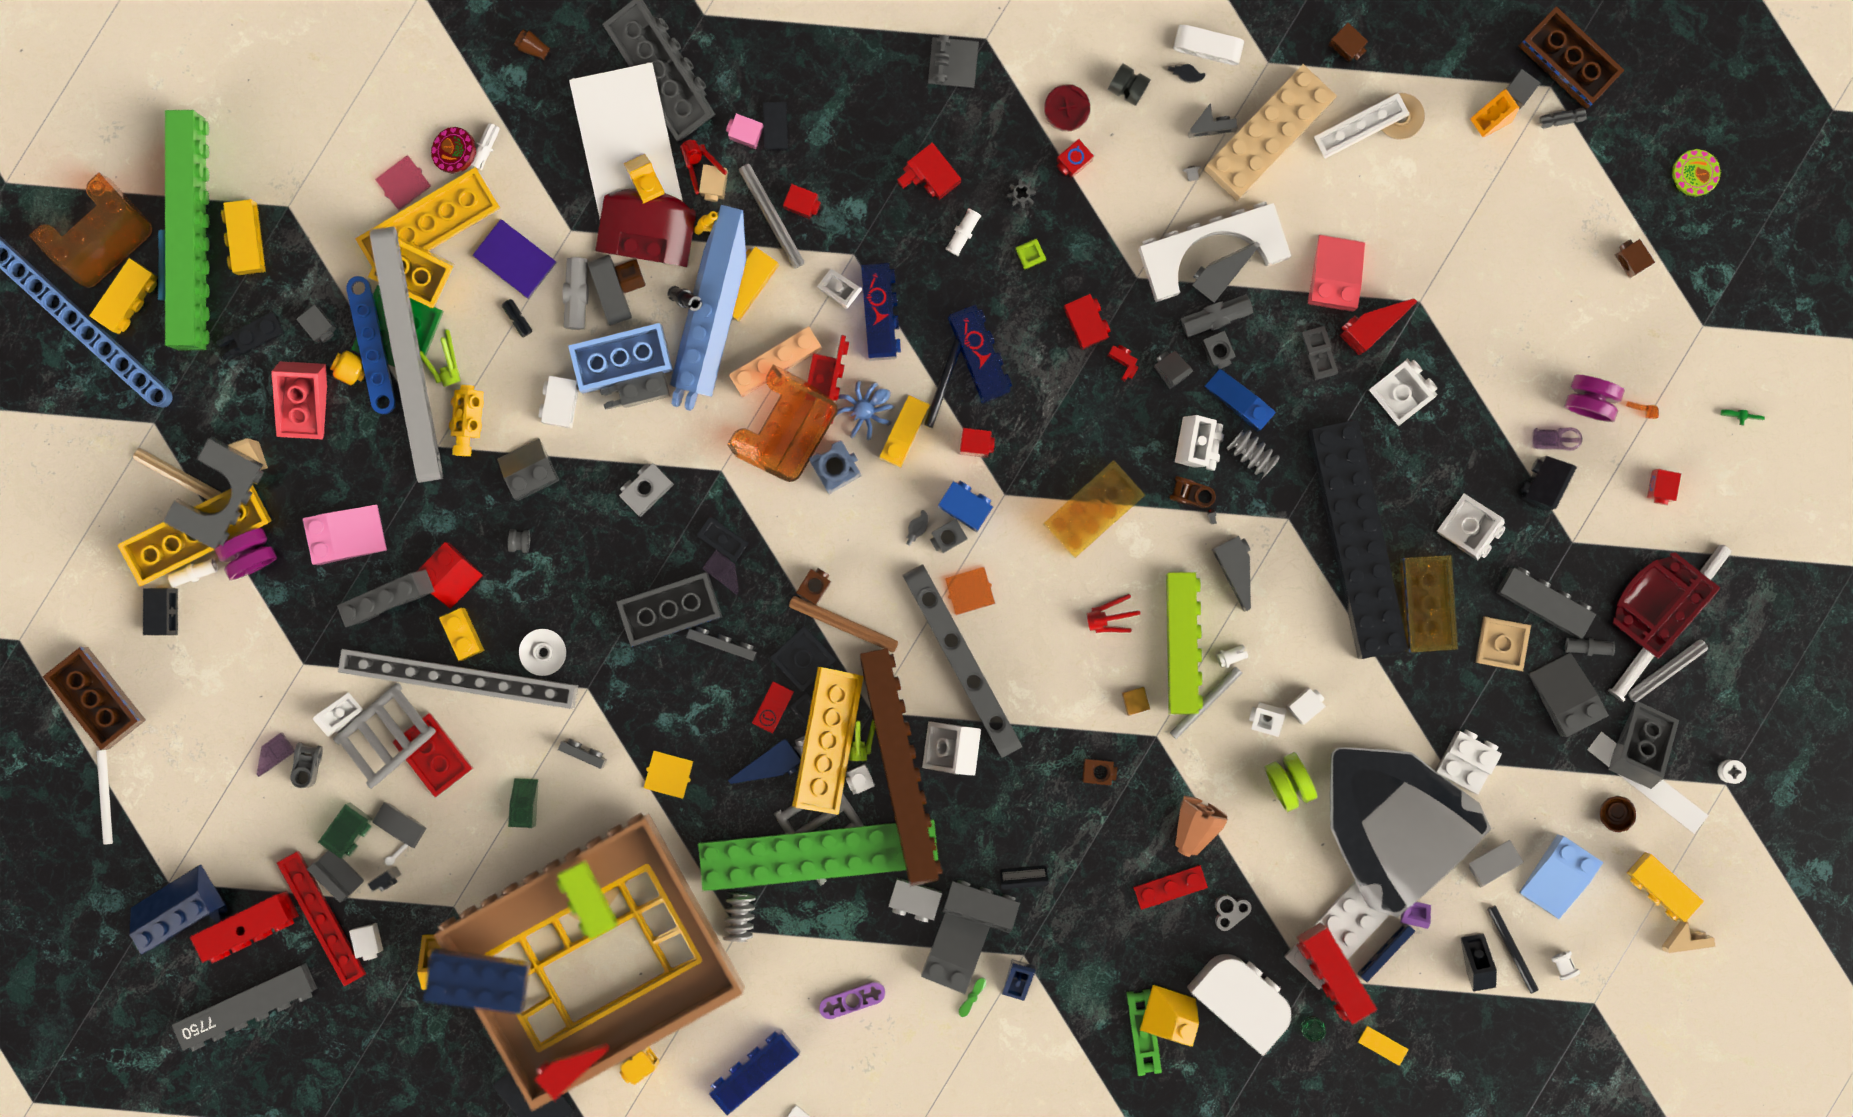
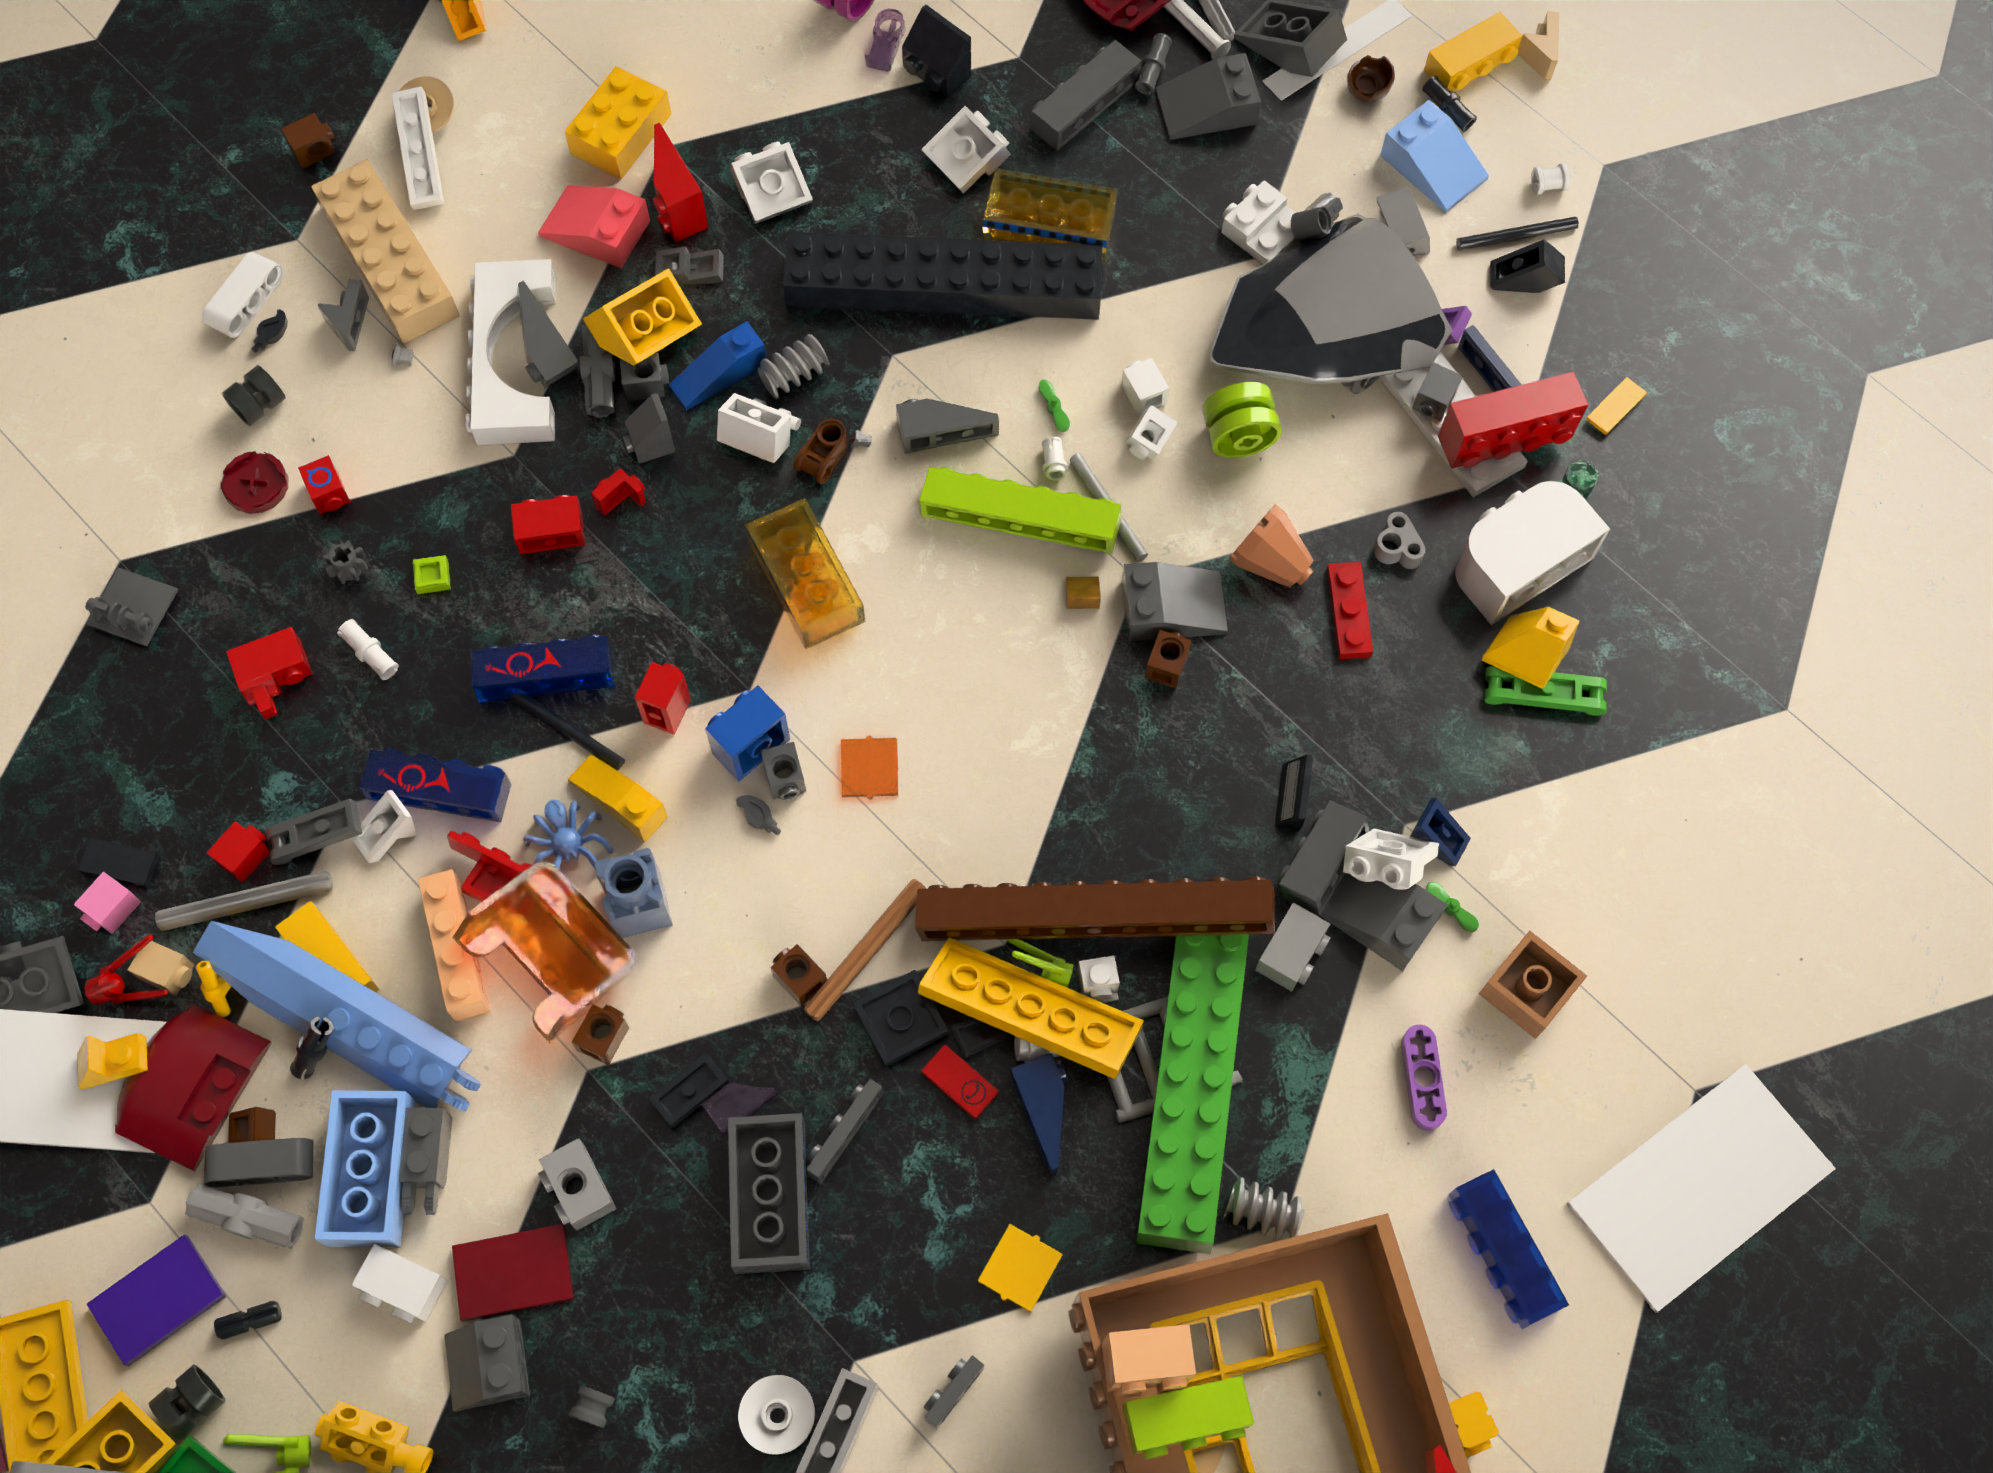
camera: 75 degrees left, 20 degrees down
(467, 306) = (197, 1391): none -> pearl dark grey wheel
(585, 467) = (512, 1272): none -> dark red tile
(610, 870) = (1148, 1359): none -> light nougat brick
(733, 474) = (605, 1048): none -> reddish brown brick
(826, 245) = (313, 831): none -> dark grey plate
(927, 1059) = (1532, 984): none -> medium nougat brick
(951, 748) = (1085, 842): white slope -> none
(962, 661) = (964, 797): dark grey beam -> none
(988, 950) = (1389, 858): none -> white plate
(1098, 619) = (958, 609): red plant -> none
(1142, 765) = (1172, 599): none -> dark grey slope
(1258, 338) = (643, 319): none -> yellow slope
(1276, 645) = (1054, 406): none -> bright green piece
(1349, 915) = (1437, 392): none -> brick
(1425, 263) = (617, 122): none -> yellow brick
(1476, 800) = (1316, 218): none -> dark grey piece
(1503, 643) = (1124, 155): tan tile -> none
(1614, 877) = (1449, 103): none -> black pin

